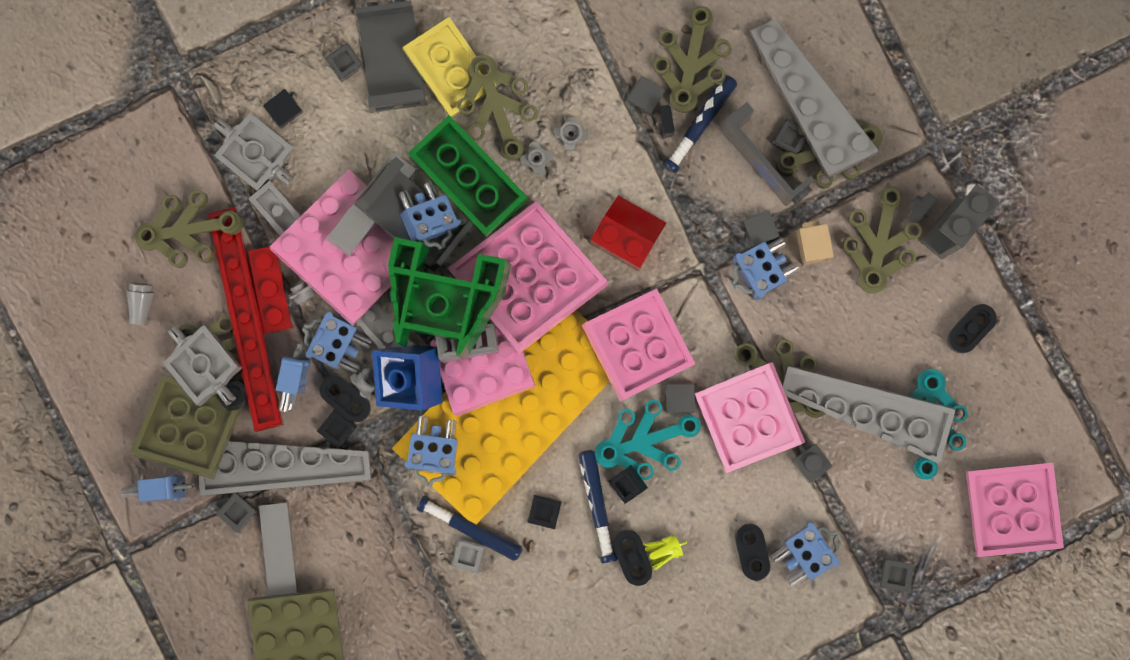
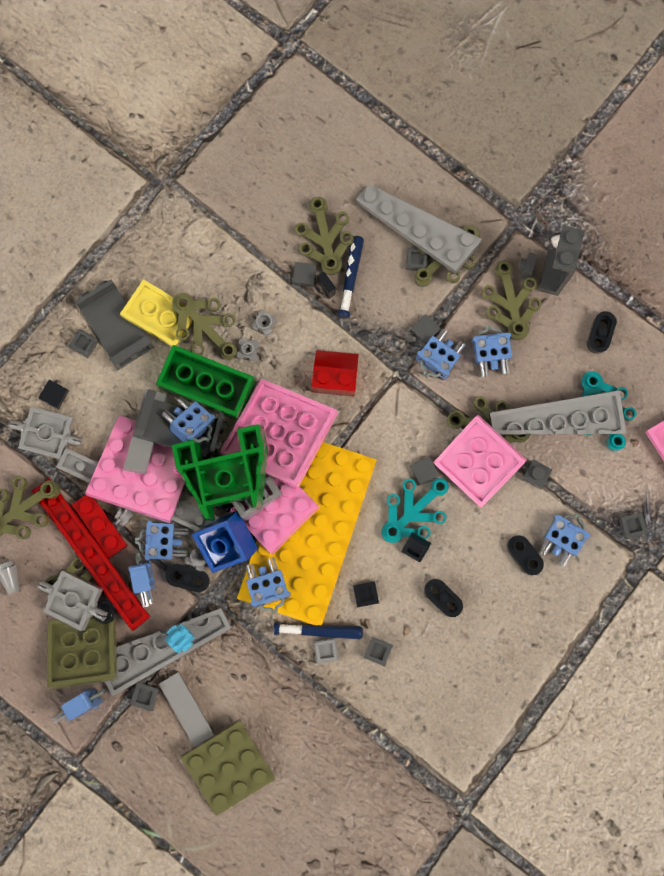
camera: 25 degrees left, 5 degrees down
(305, 465) = (179, 638): none -> medium azure gear
(337, 429) = (191, 602): black tile -> none
(528, 584) = (378, 651): none -> dark grey plate
(596, 501) = (400, 571): dark blue piece -> none
(638, 344) = (378, 445): bright pink plate -> none
(664, 550) = (463, 582): neon yellow piece -> none
(759, 163) = (402, 282): dark grey panel -> none
(814, 243) = (467, 322): tan brick -> none
(836, 284) = (494, 343): none -> medium blue piece

